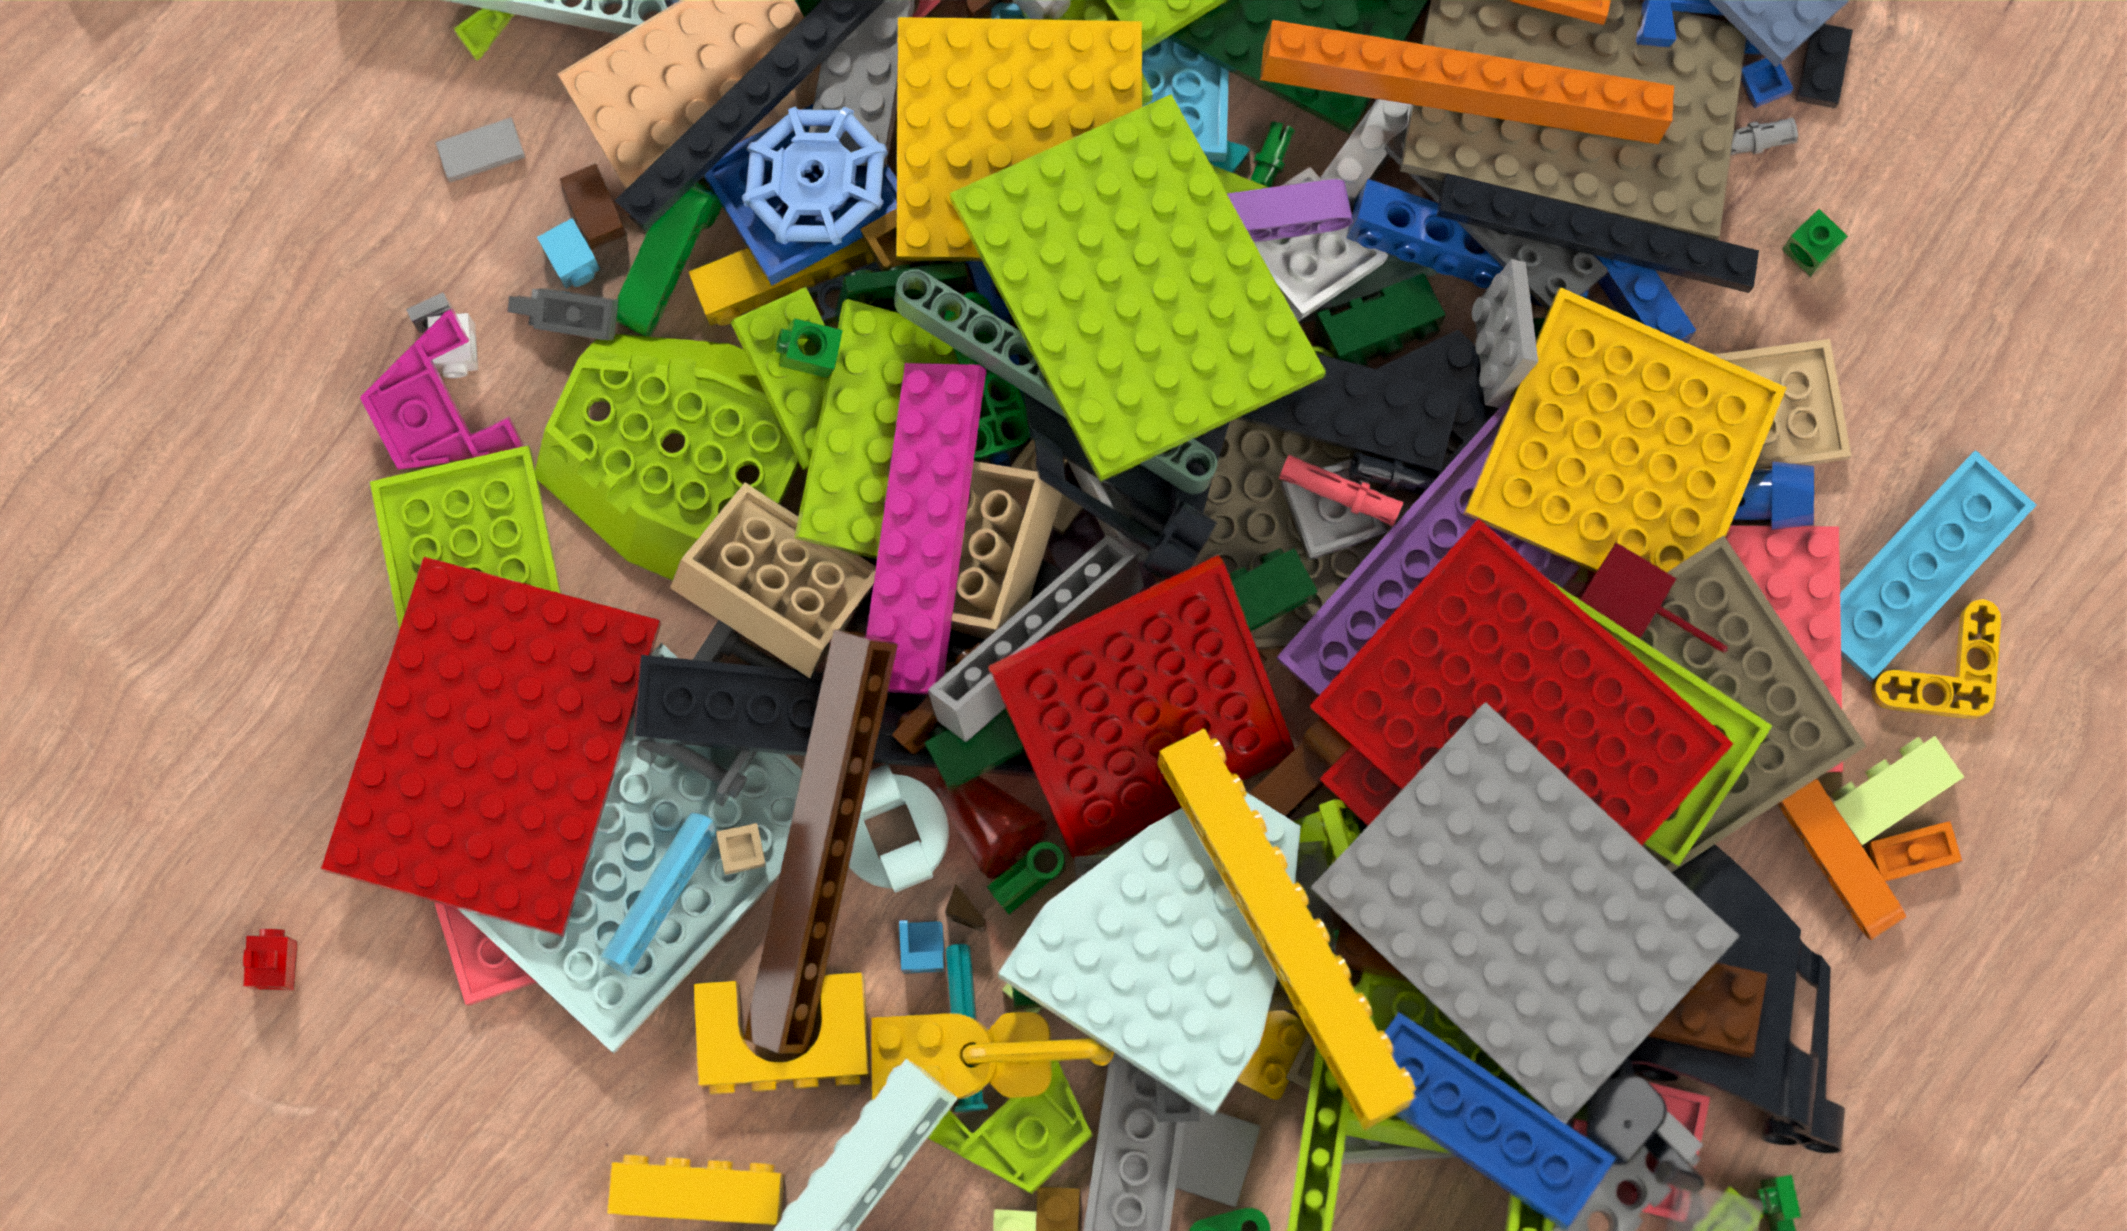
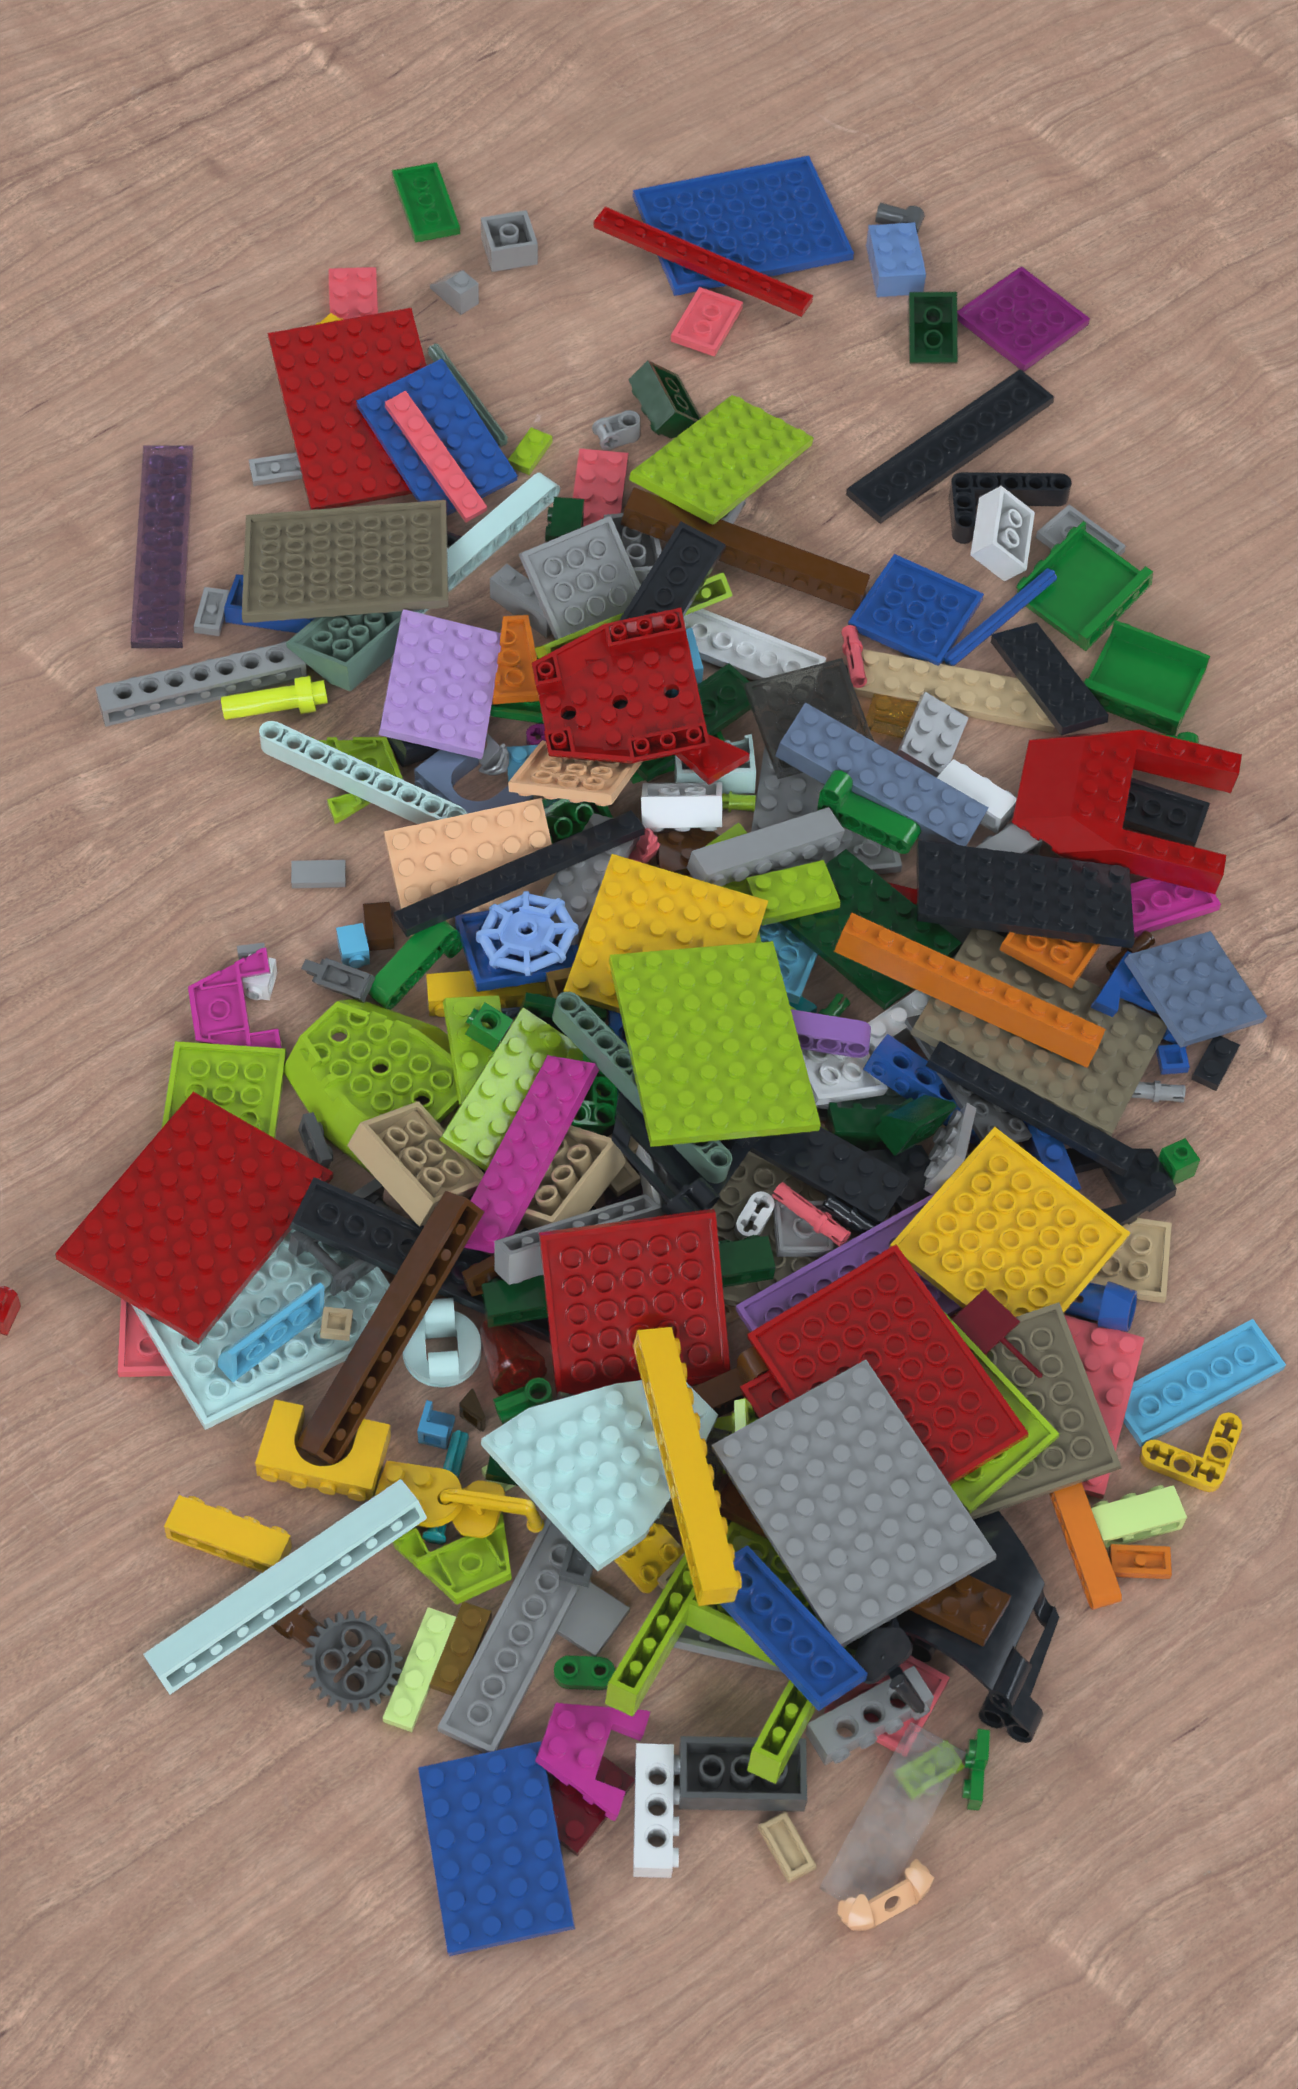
camera: 10 degrees right, 20 degrees down
(611, 568) = (313, 1139): none -> dark grey plate
(1253, 512) = (749, 1213): none -> white beam
(1441, 305) = (913, 1122): none -> dark green slope
(1774, 307) = (1141, 1188): none -> black wing

